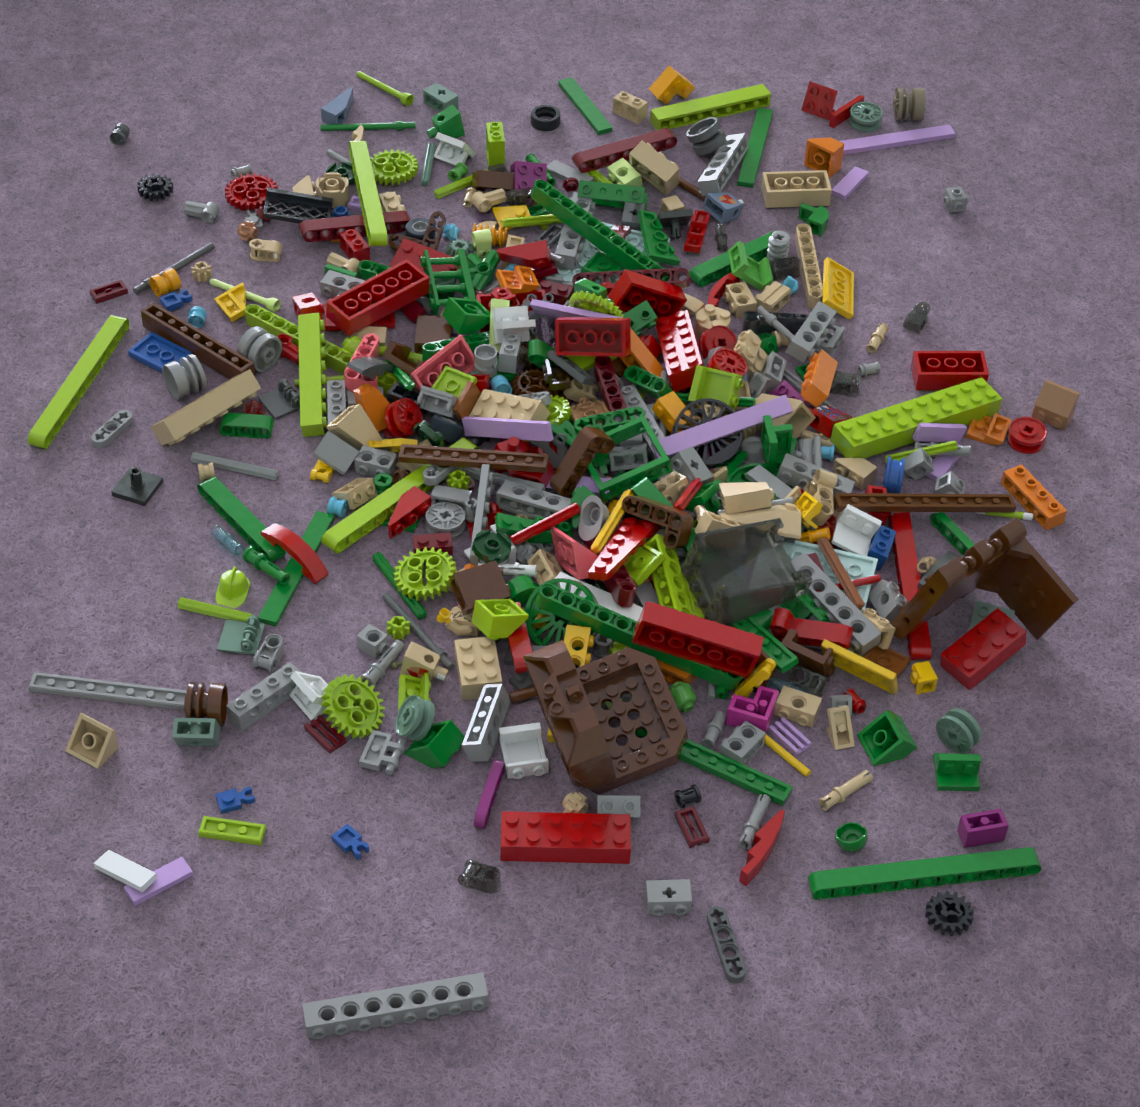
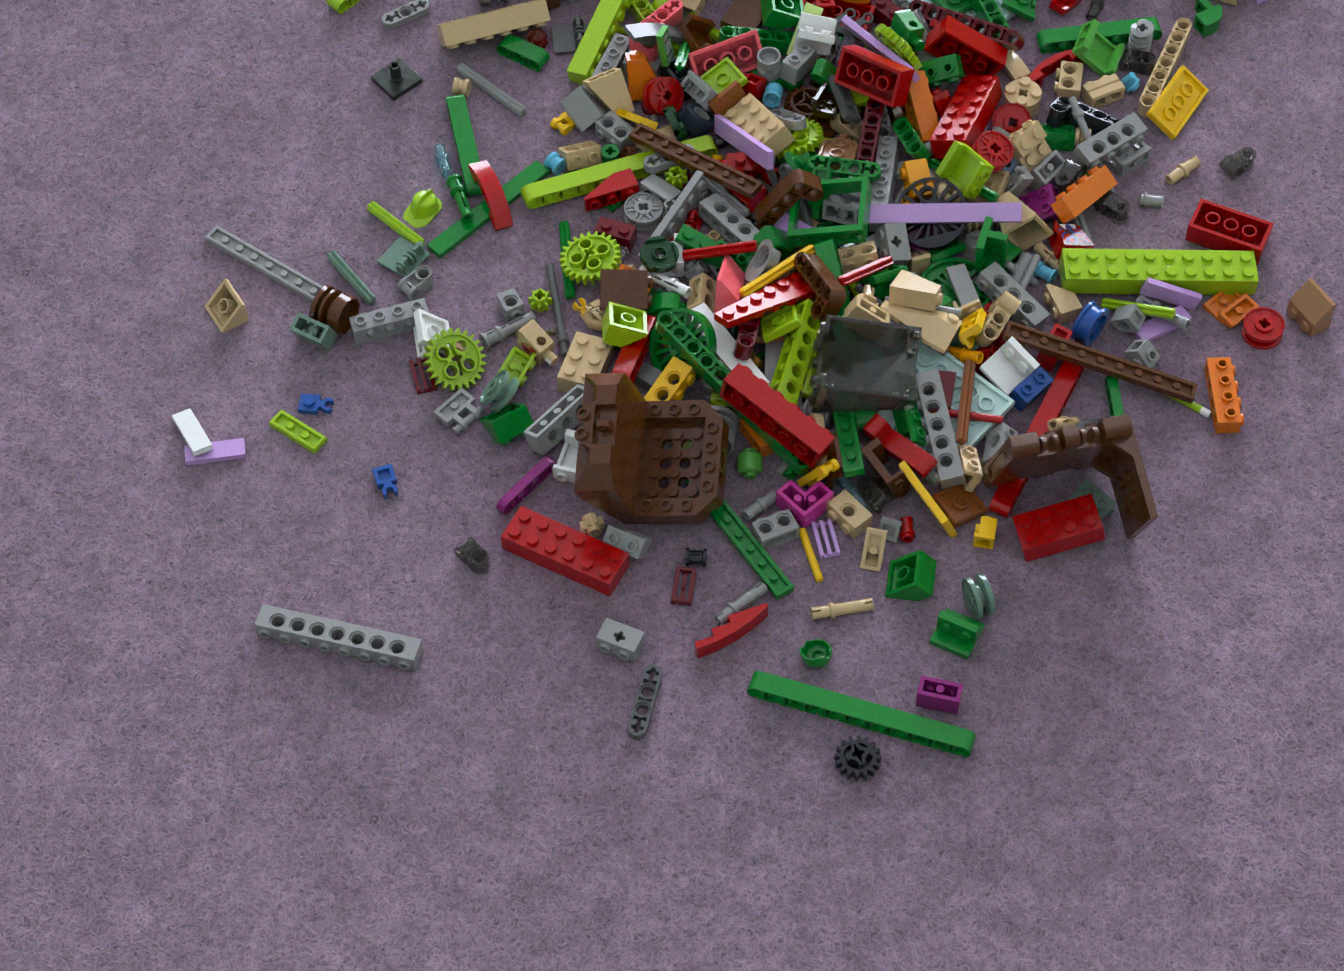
camera: 30 degrees right, 10 degrees up
(199, 671) = (351, 277): none -> sand green axle
(383, 363) = (664, 46): none -> bright green tile
(796, 369) = (1069, 174): none -> clear smoke piece

